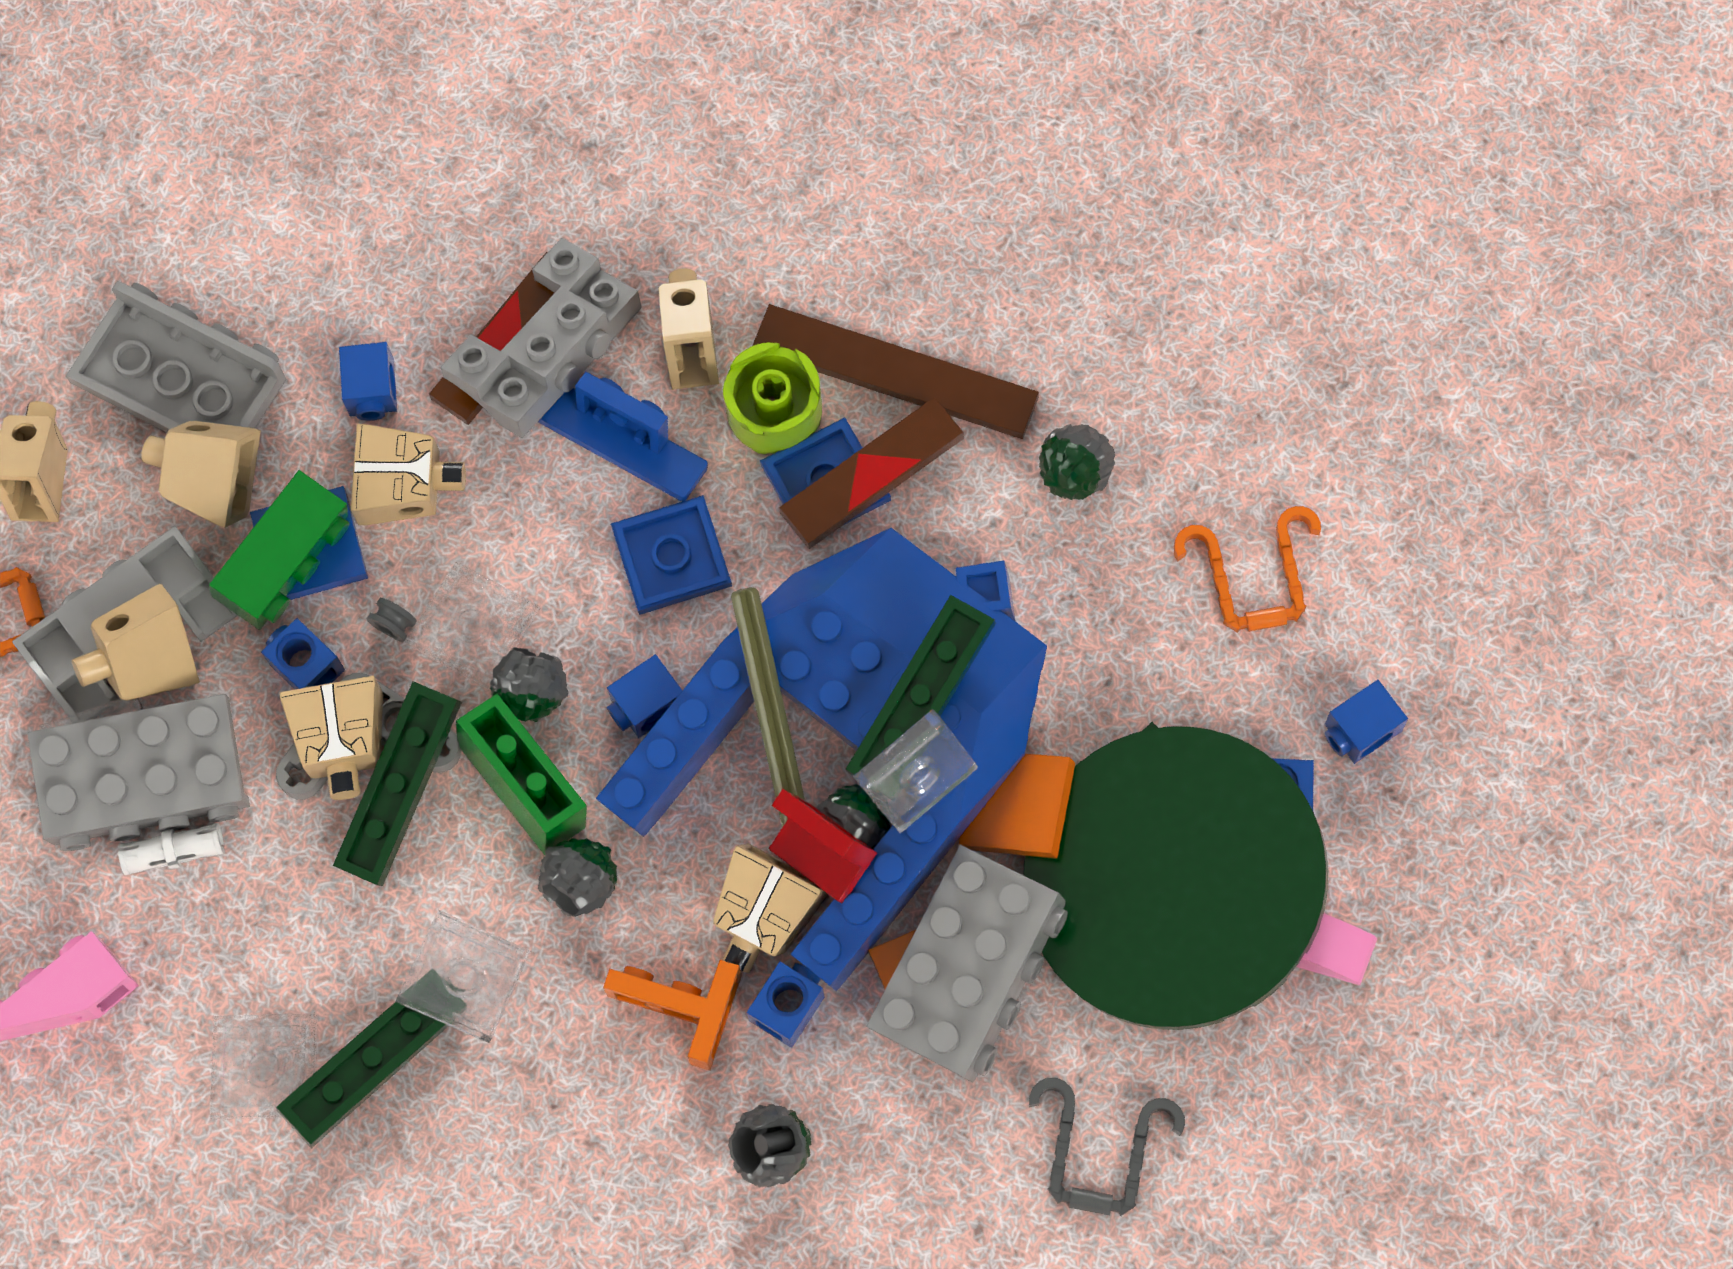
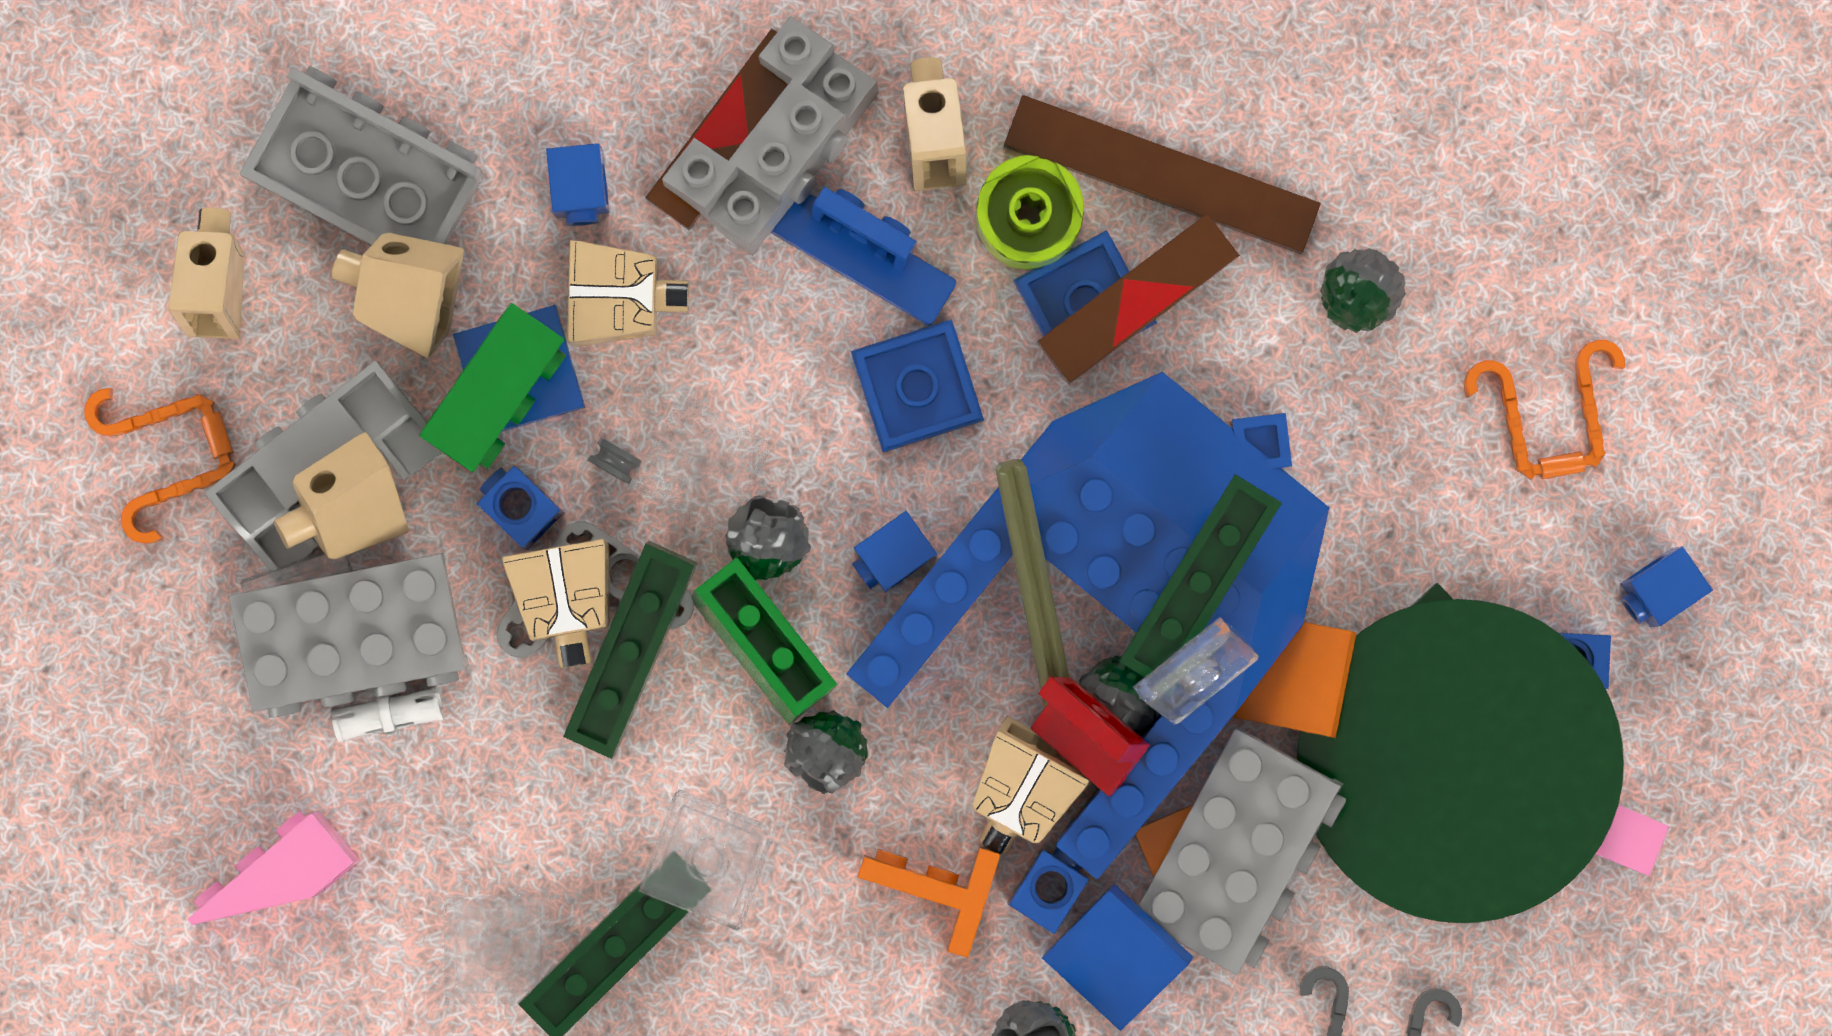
camera: 10 degrees left, 15 degrees up
(851, 1065) = (1117, 957): none -> blue tile

